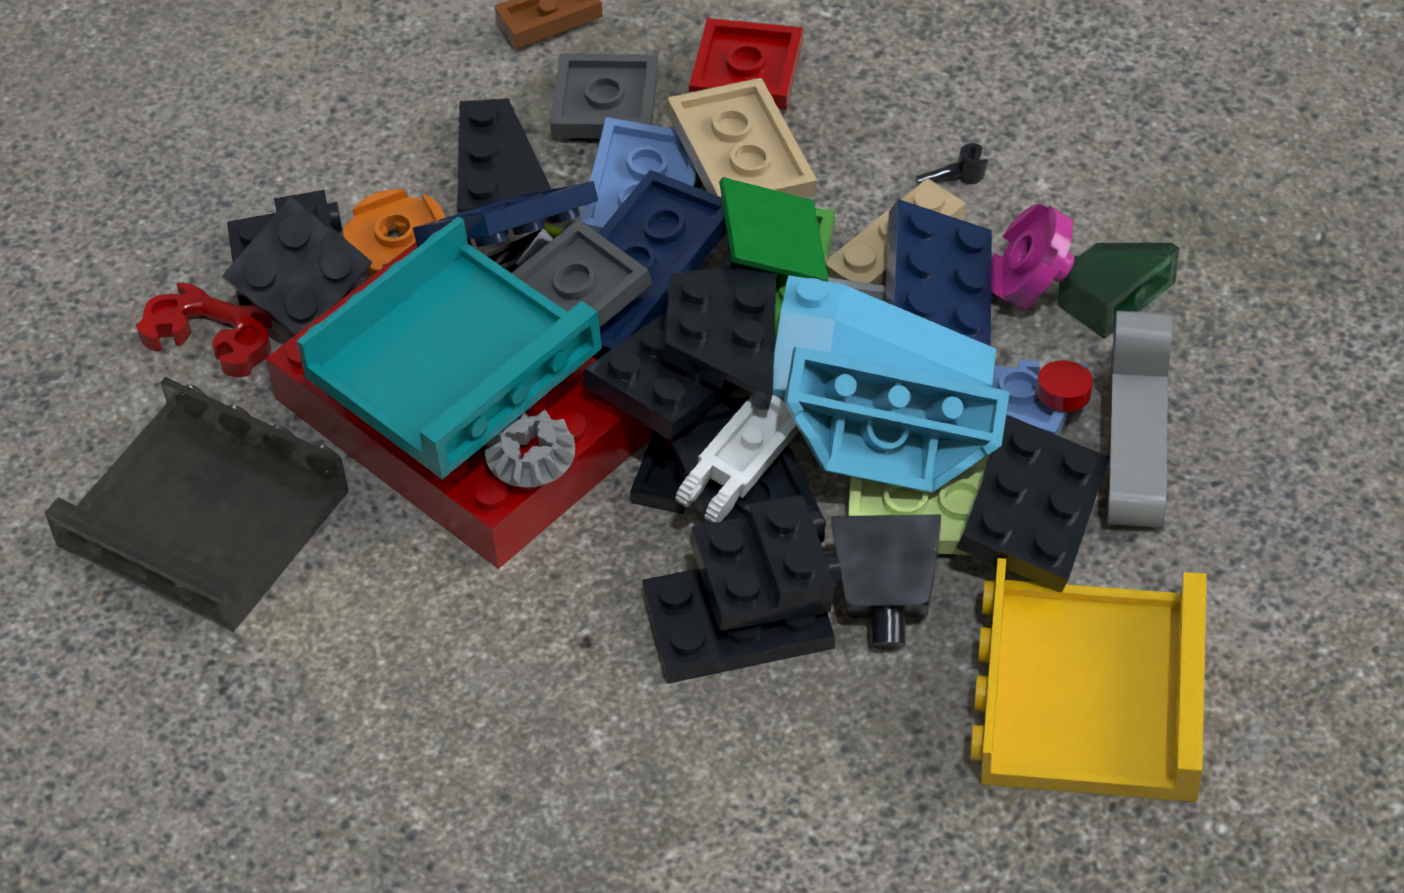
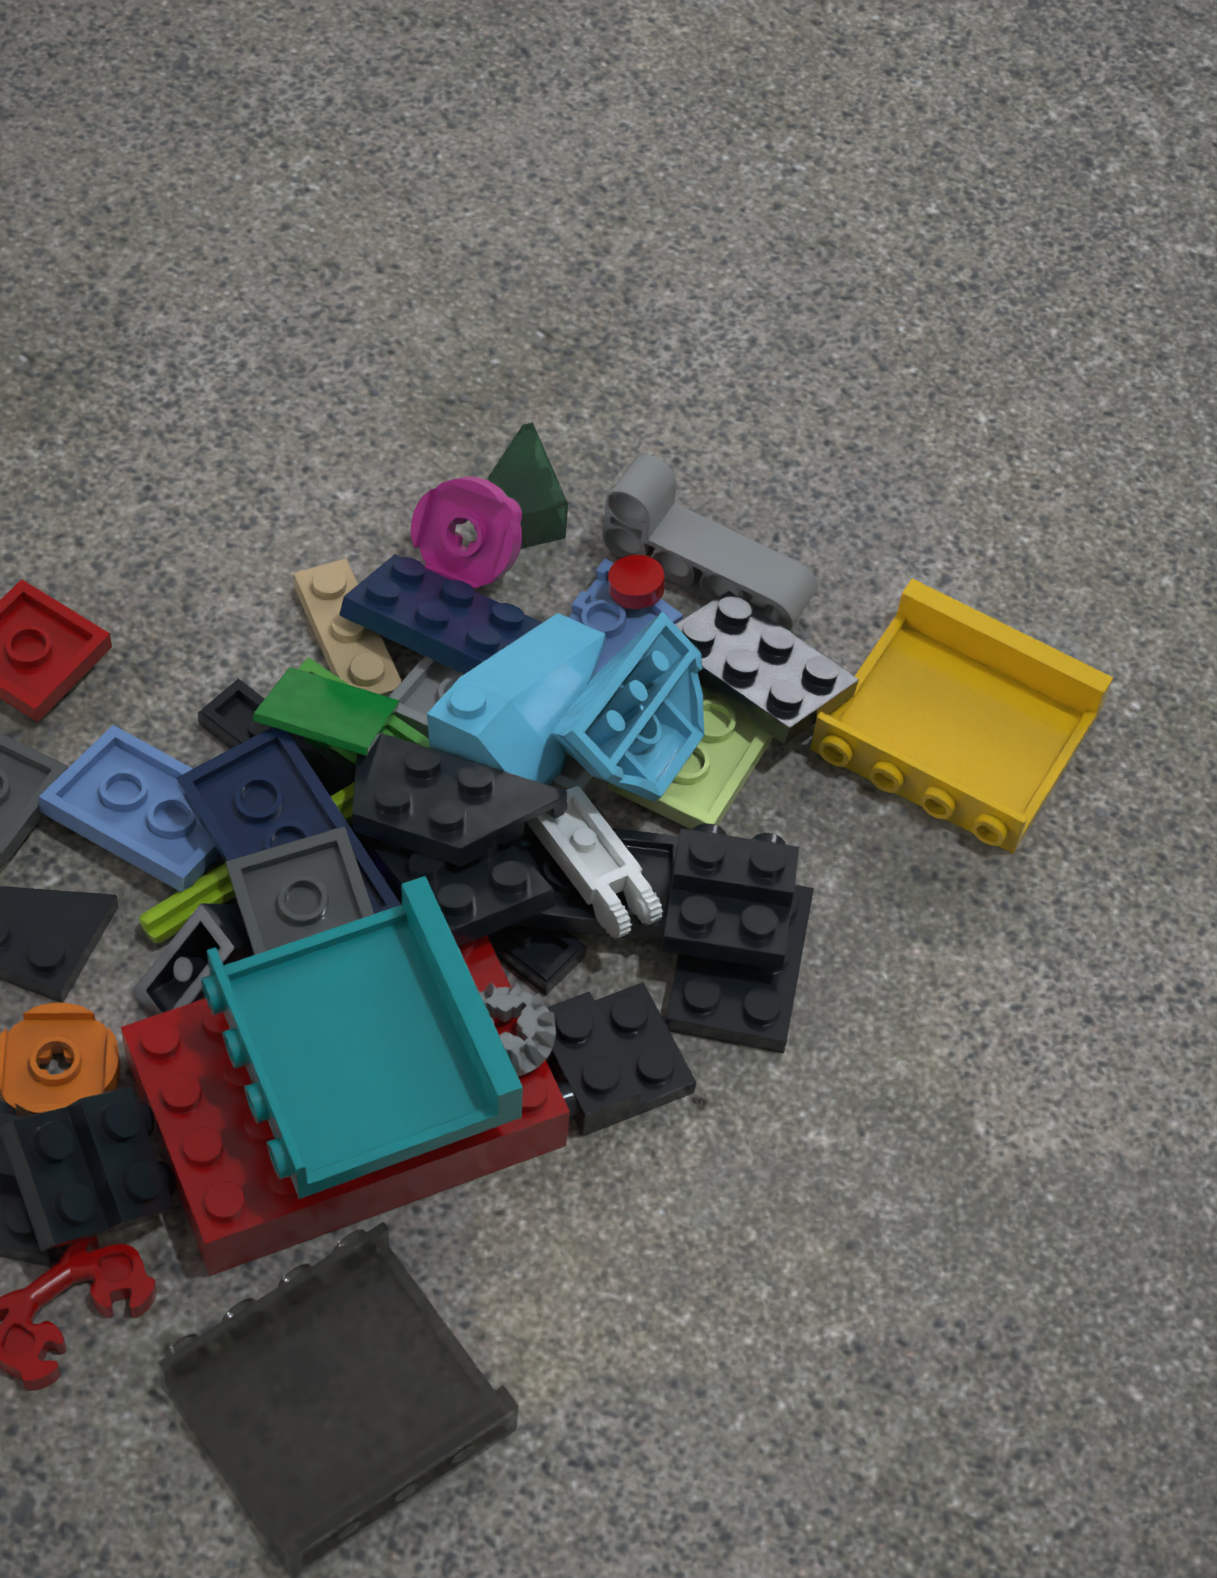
camera: 75 degrees left, 5 degrees up
(521, 213) = (160, 930): dark blue plate -> none
(585, 557) = (615, 1058): none -> black plate
(742, 137) = (166, 696): tan plate -> none
(887, 570) = (781, 795): black torso -> none
(967, 168) = (290, 542): black hand -> none

